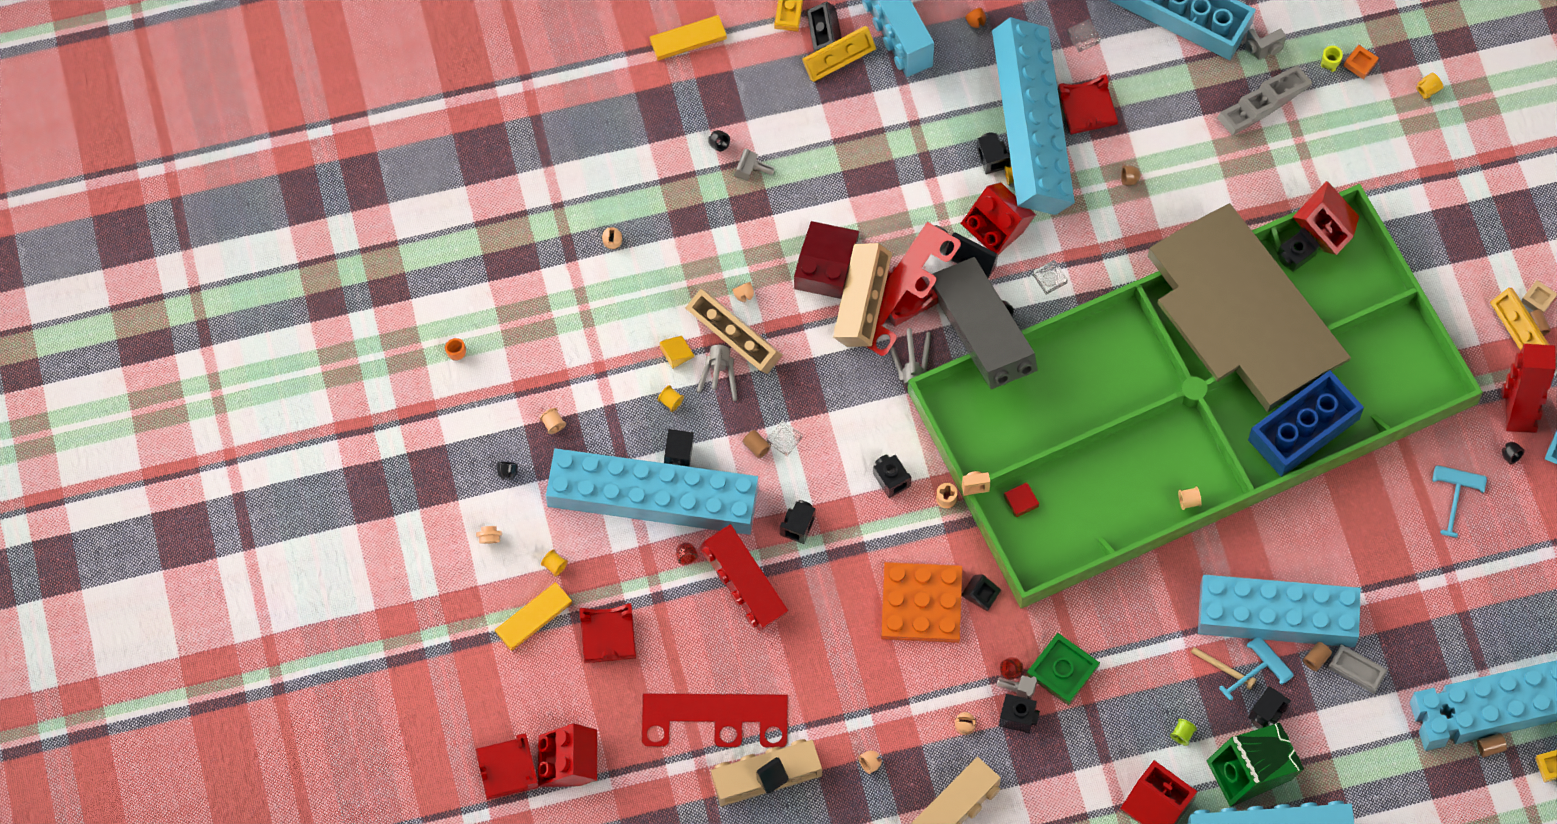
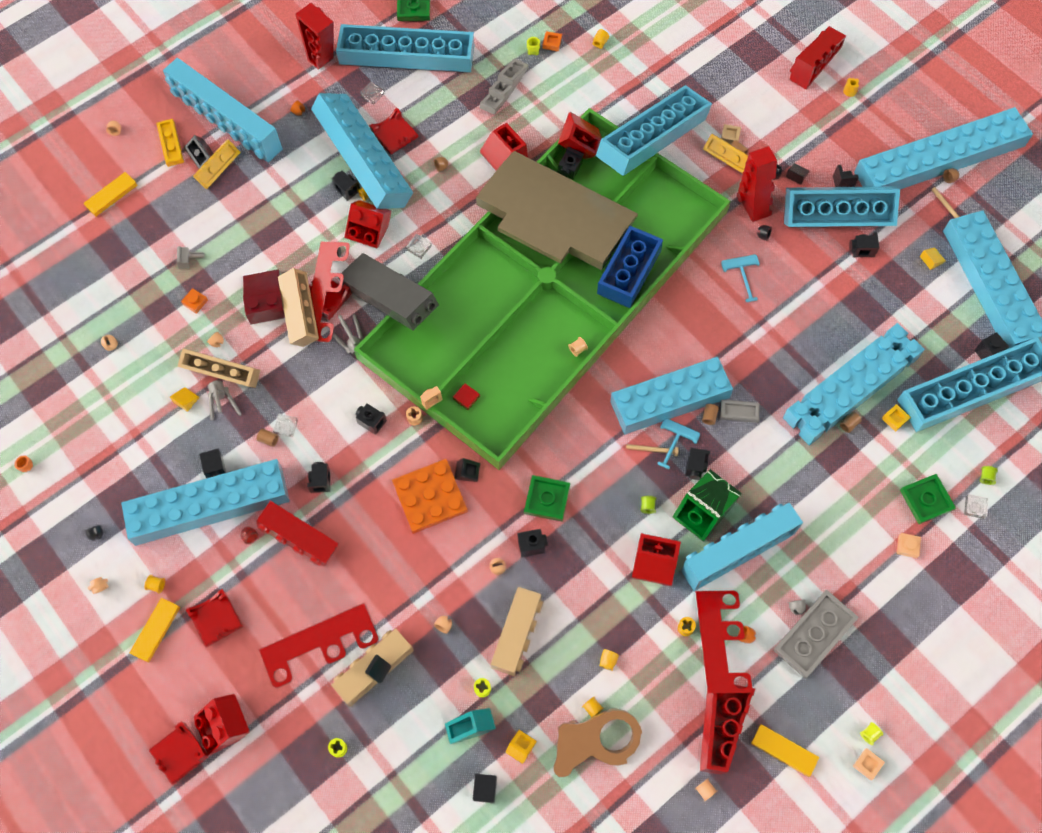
camera: 25 degrees left, 0 degrees up
(552, 421) = (114, 483): light nougat axle -> none
(670, 398) = (193, 432): yellow axle -> none
(719, 135) = (158, 246): black hinge -> none
(737, 228) = (194, 300): none -> orange plate
(968, 249) = (357, 249): black slope -> none
(1007, 664) = (507, 512): clear red hinge -> none
(1024, 688) = (527, 524): light grey piece -> none
(1220, 185) = (501, 144): none -> slope
(1267, 45) = (488, 54): light grey bracket -> none
(1429, 252) = (653, 130): none -> medium azure brick

